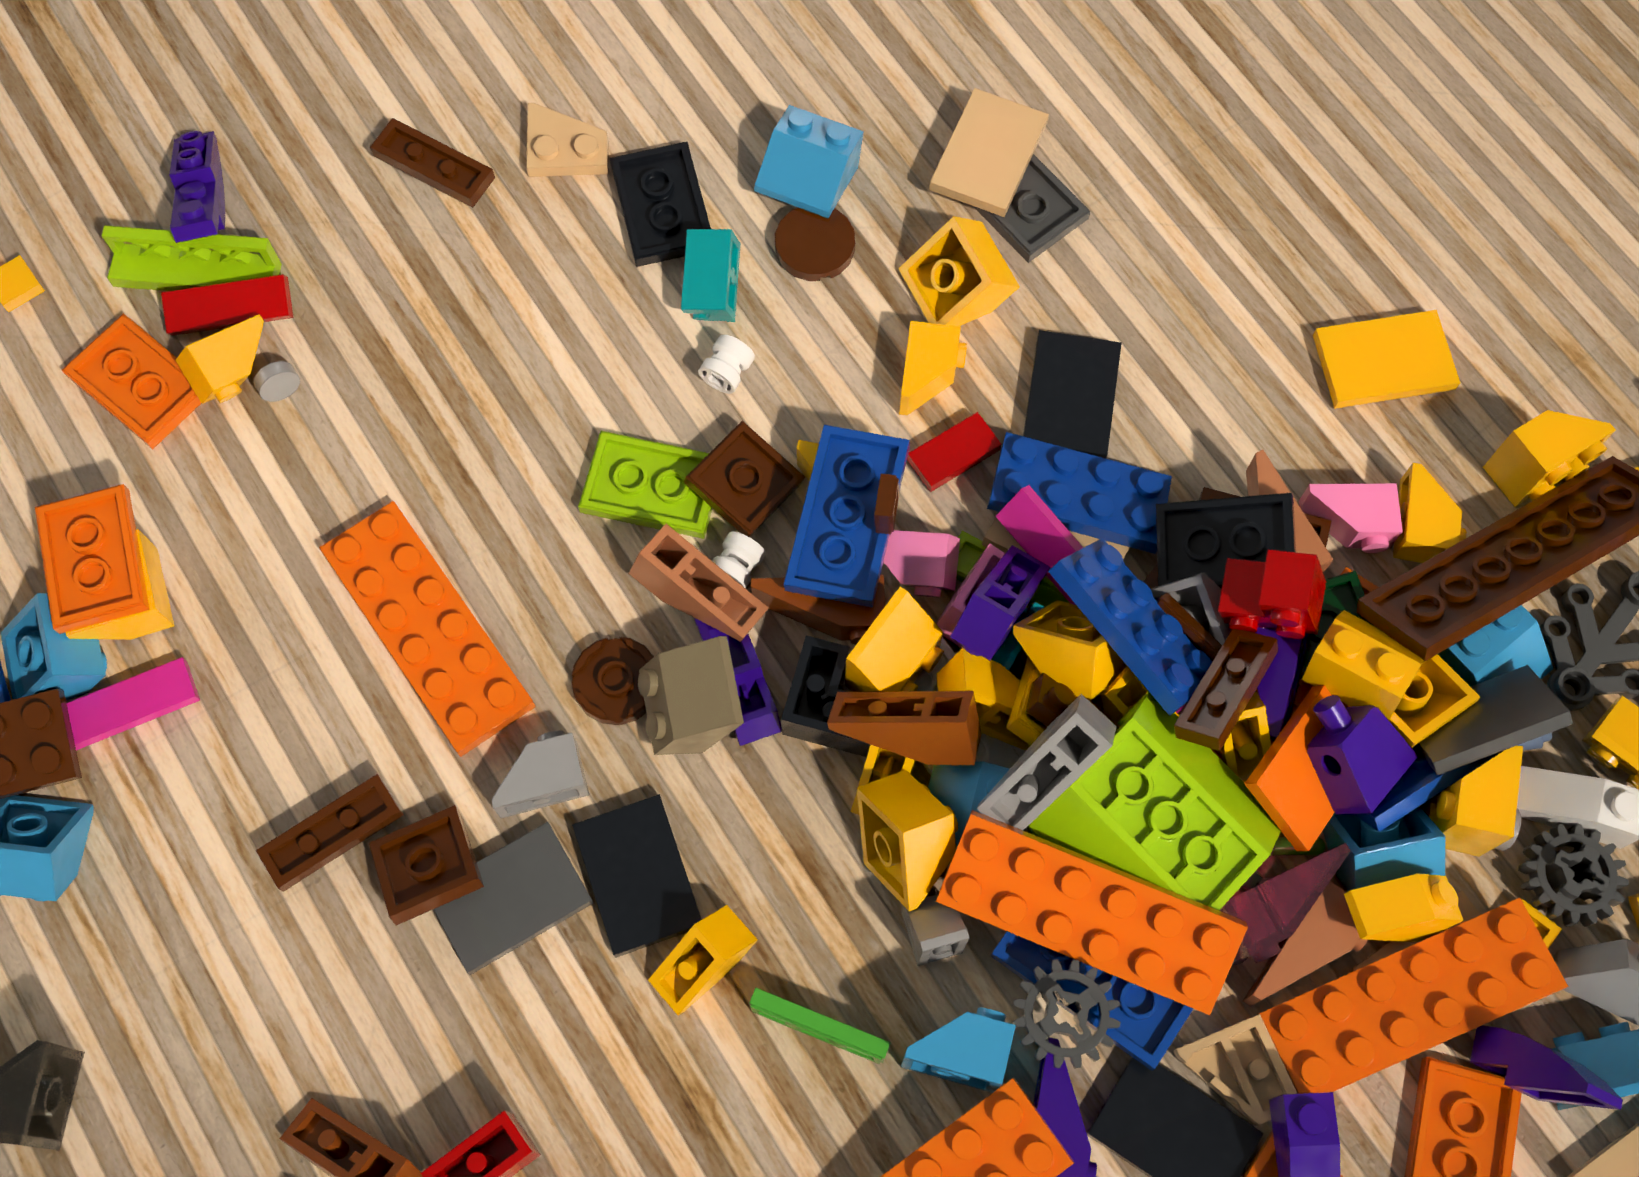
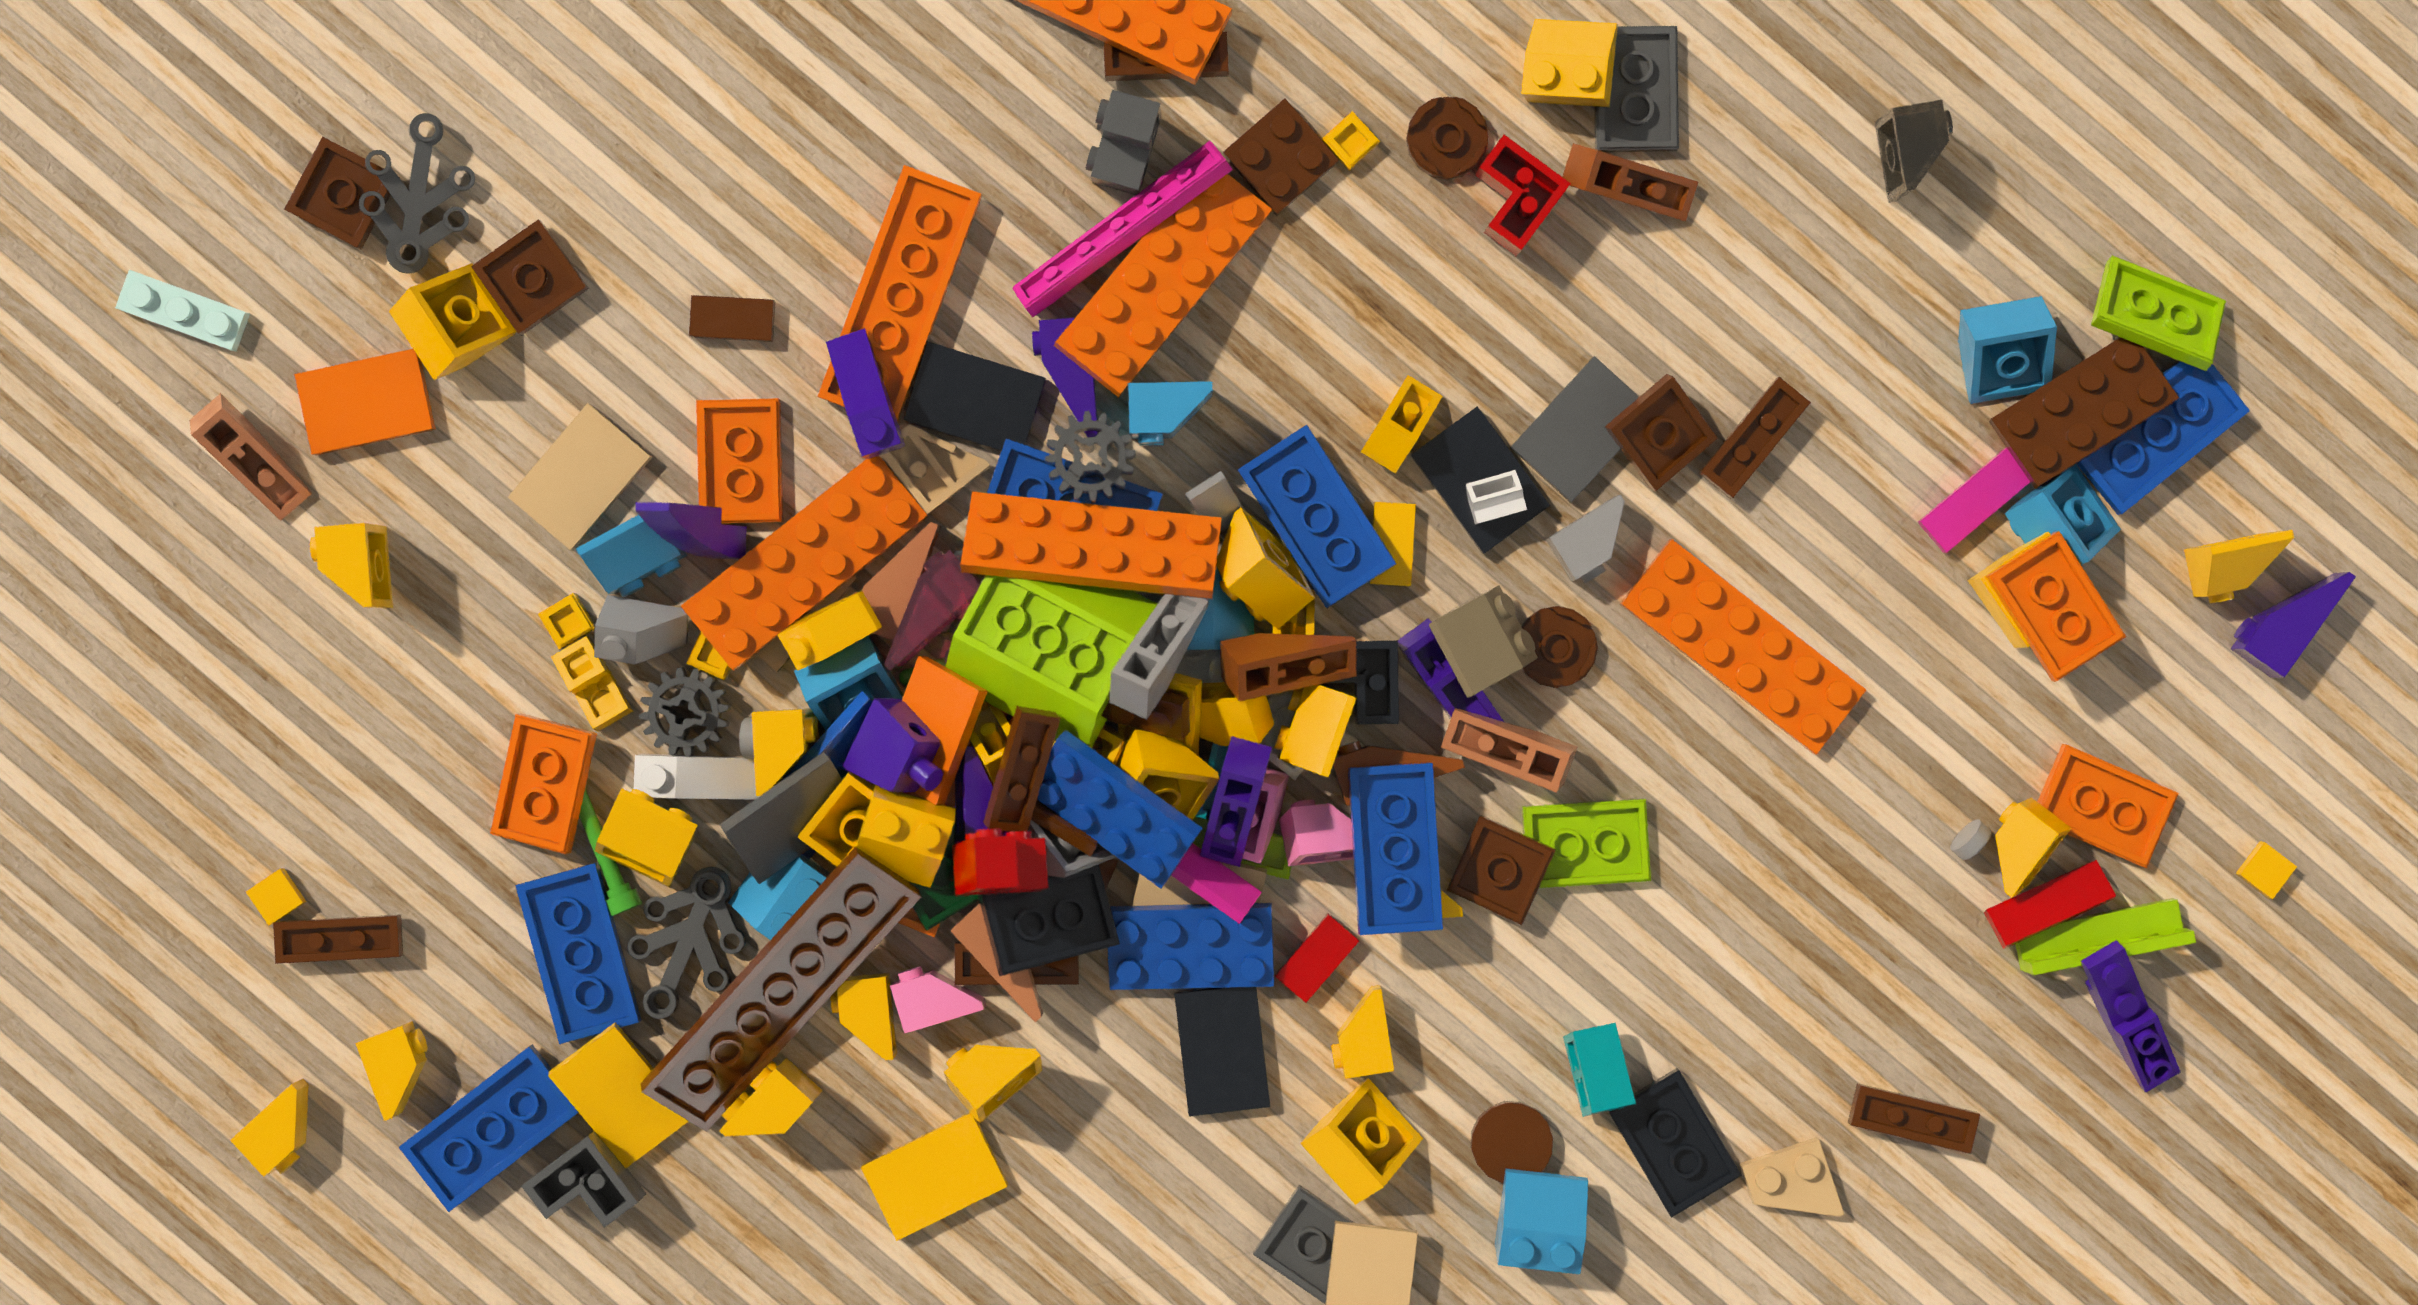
camera: 160 degrees right, 20 degrees up
(627, 844) = (1495, 497): none -> white piece
(725, 365) = (1555, 979): white wheel -> none
(740, 557) = (1481, 795): white wheel -> none
(752, 835) = (1396, 529): none -> yellow tile
(819, 1026) = (1288, 397): bright green tile -> none
(826, 885) = (1317, 516): none -> blue plate
(886, 504) = (1362, 857): reddish brown tile -> none
(1320, 419) = (990, 1076): none -> yellow slope

